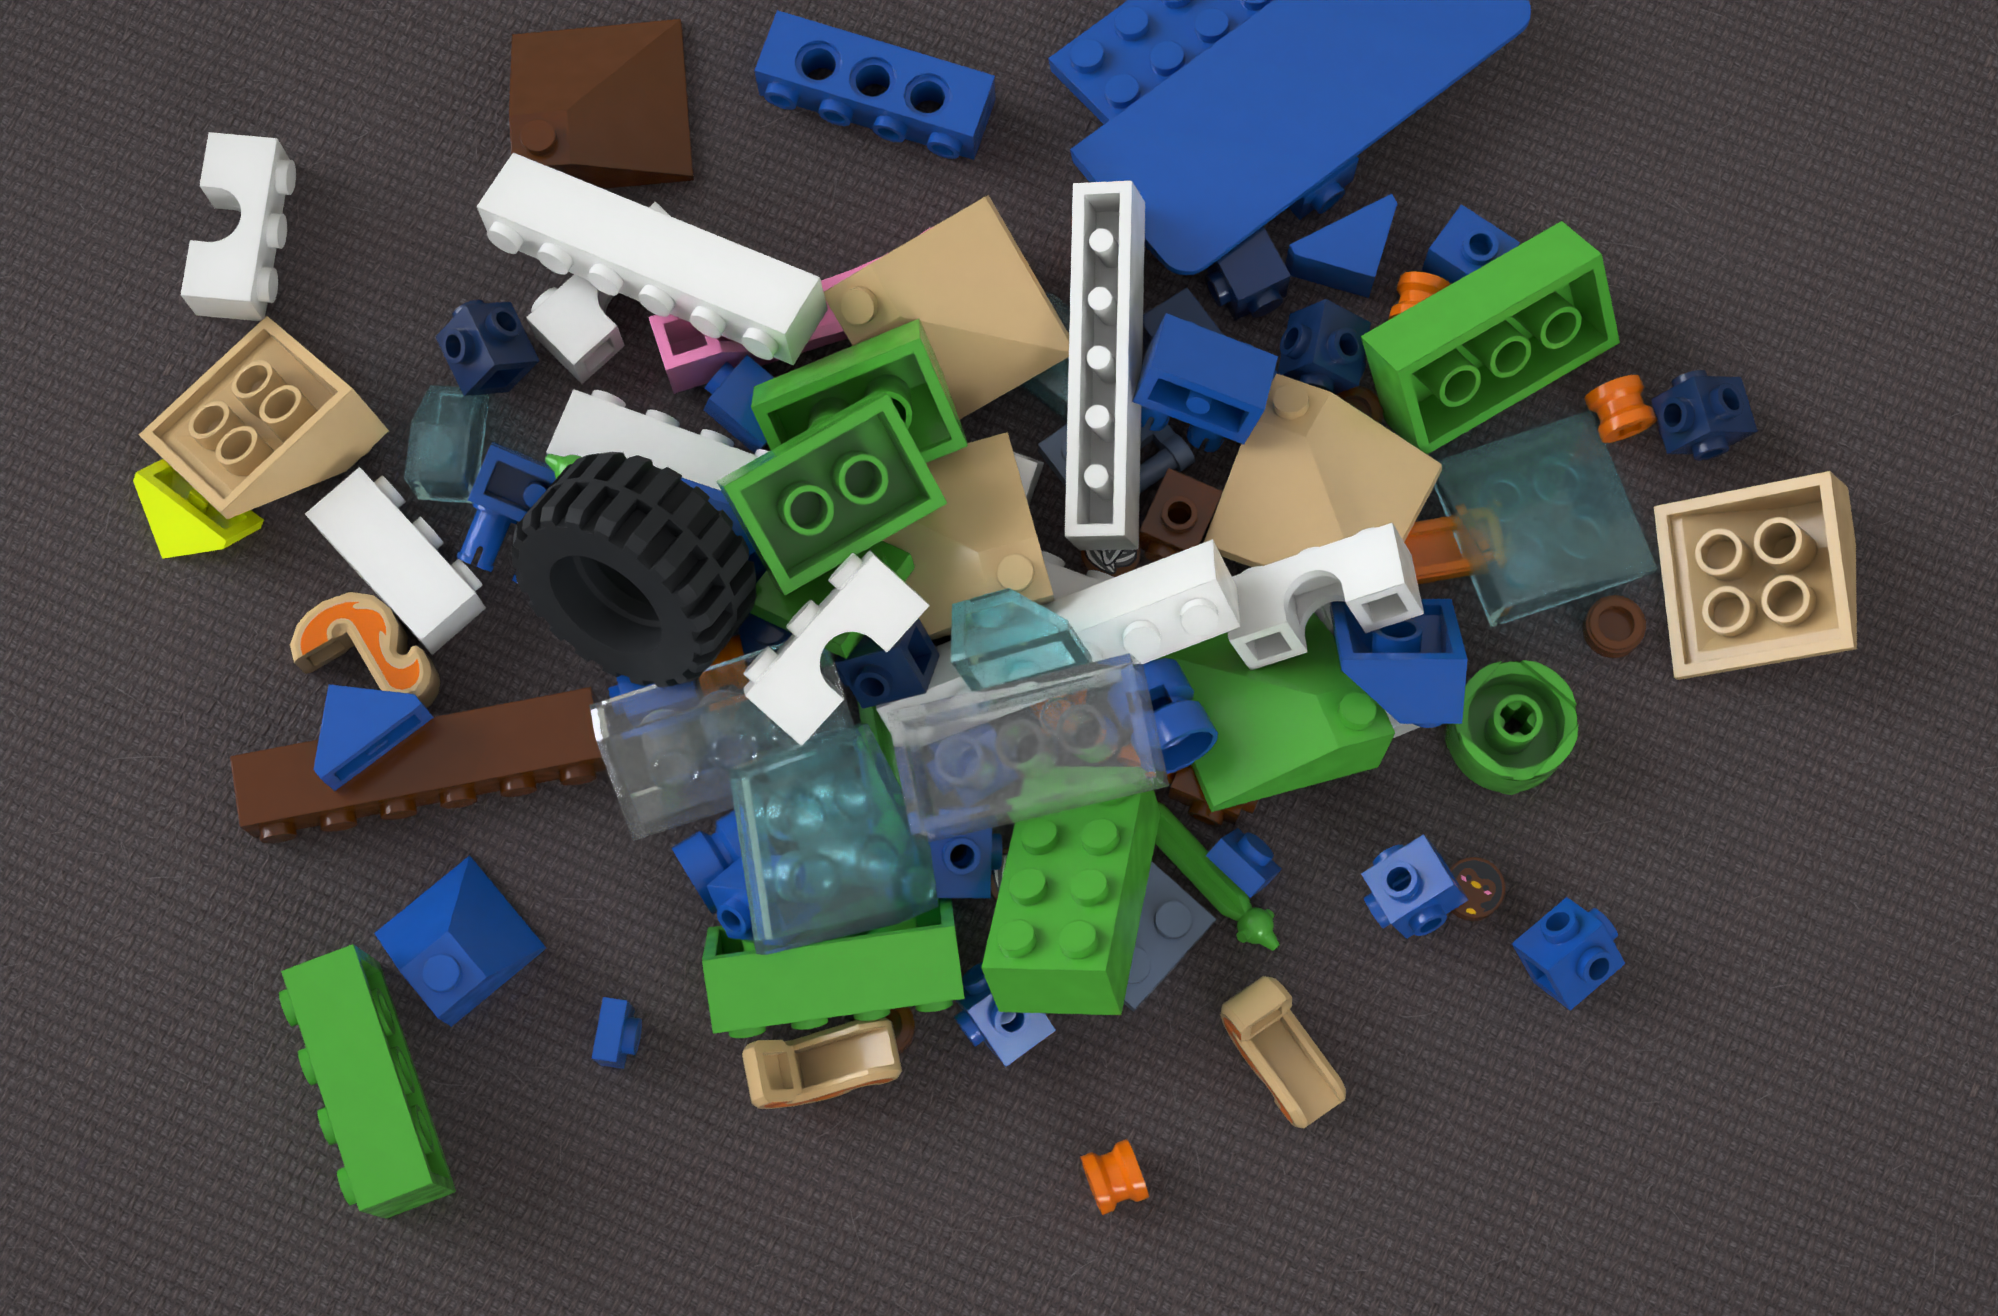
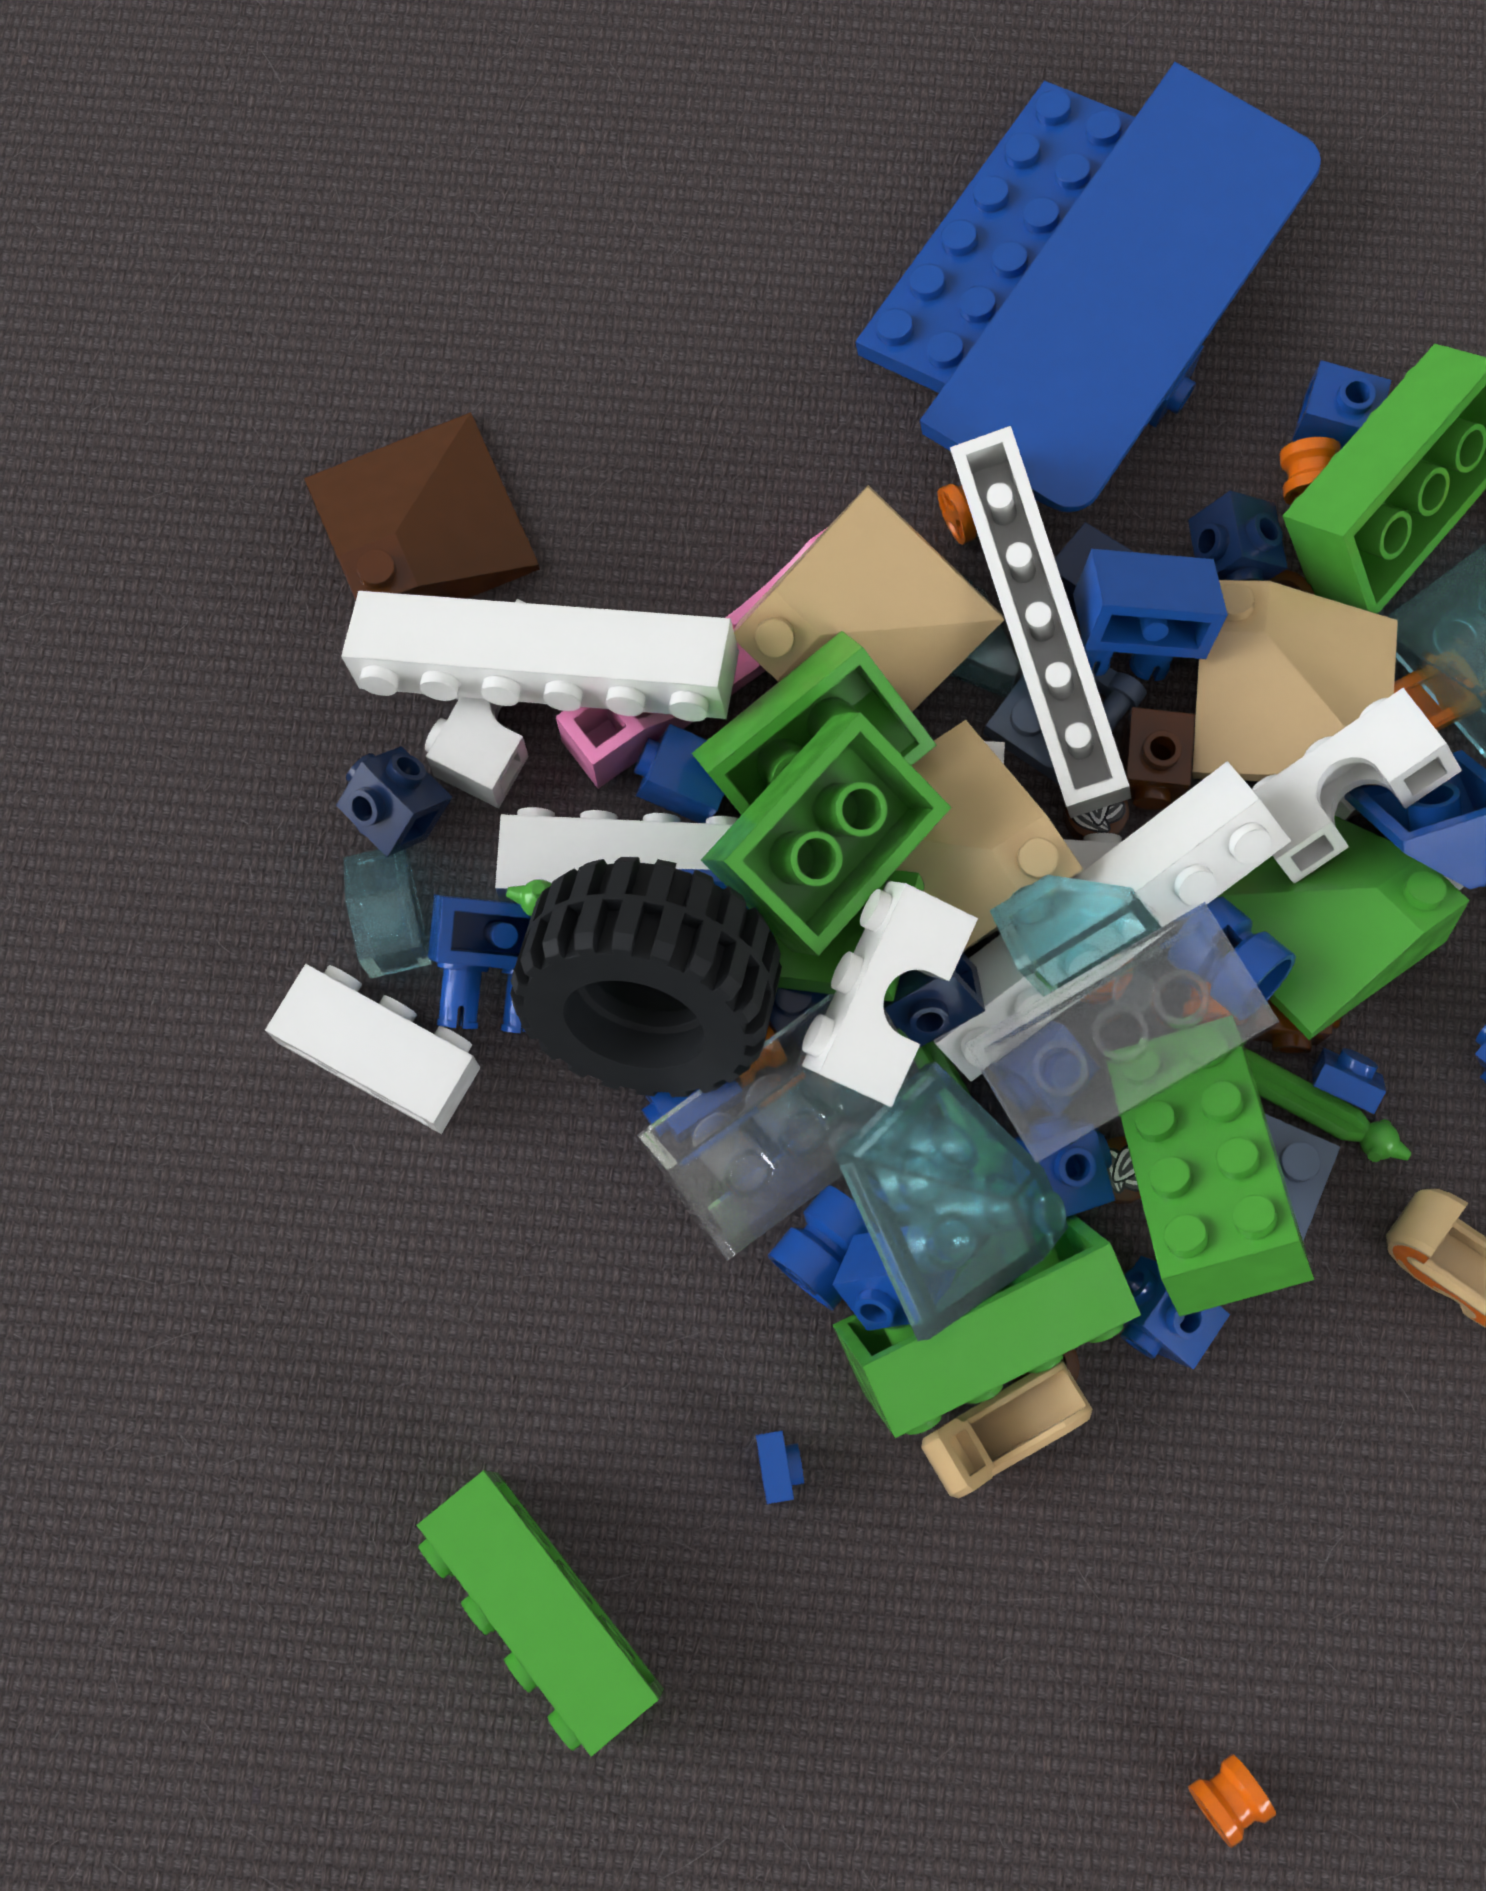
camera: 20 degrees left, 0 degrees up
(183, 518) = (137, 1065): neon yellow slope -> none
(237, 273) = (101, 805): white arch -> none
(263, 424) = (185, 951): tan slope -> none
(361, 728) = (407, 1234): blue slope -> none
(379, 638) = (380, 1130): tan animal -> none
(442, 762) = (470, 1253): reddish brown brick -> none
(459, 942) = (575, 1423): blue slope -> none
(802, 45) = (671, 397): blue brick -> none
(1114, 1177) = (1339, 1445): orange wheel -> none
(1249, 277) = (1136, 496): dark blue brick -> none
(1346, 251) = (1223, 443): blue slope -> none

